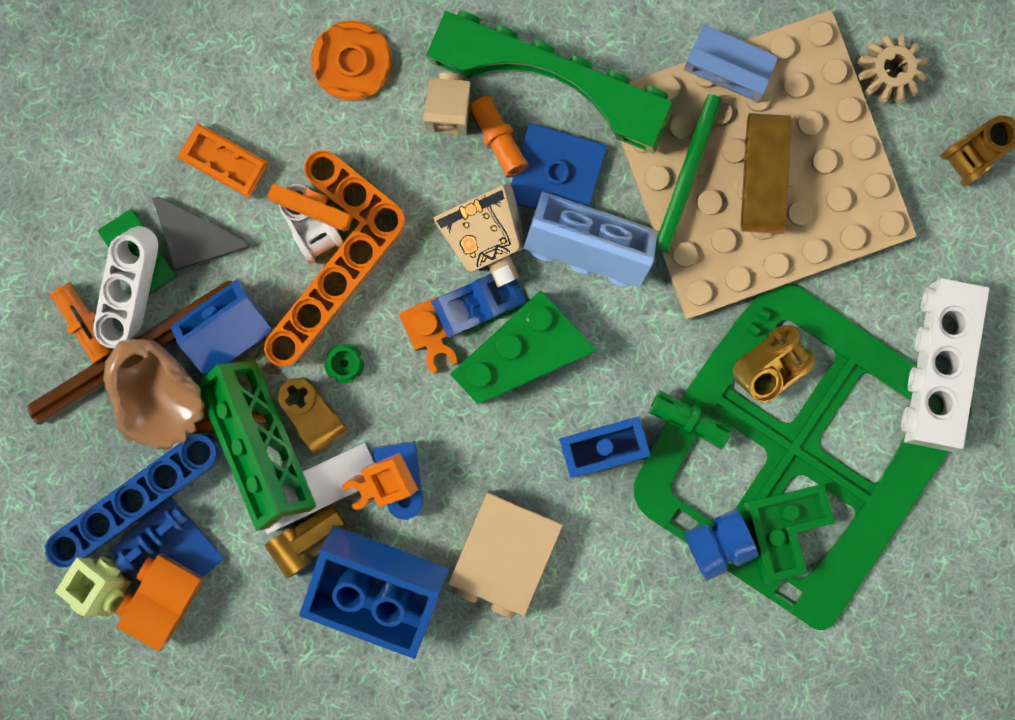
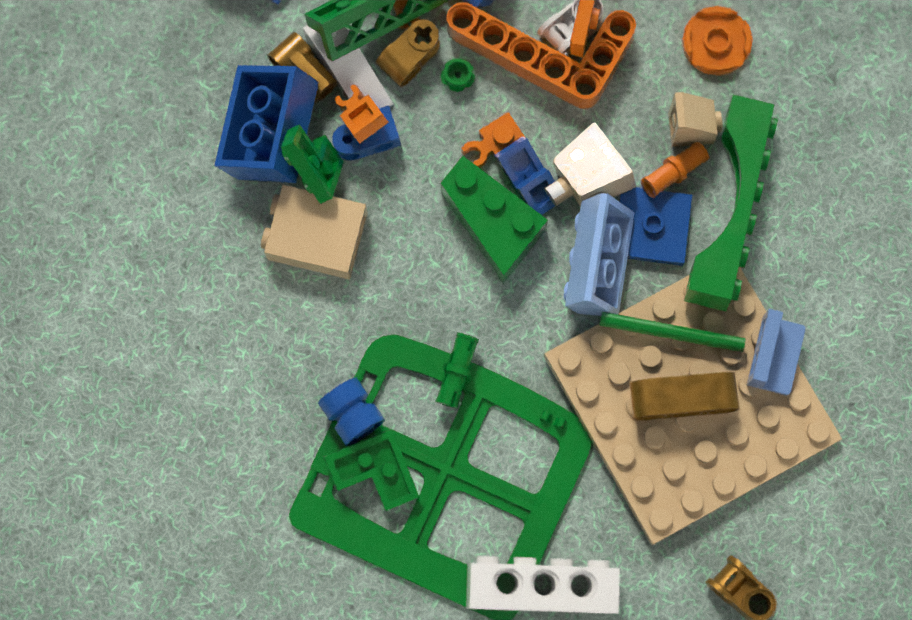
camera: 85 degrees right, 10 degrees down
(432, 544) = (315, 162): none -> green plate
(604, 447) = (420, 298): blue brick -> none
(773, 364) = (521, 435): pearl gold piece -> none
(881, 56) = (808, 492): tan gear -> none

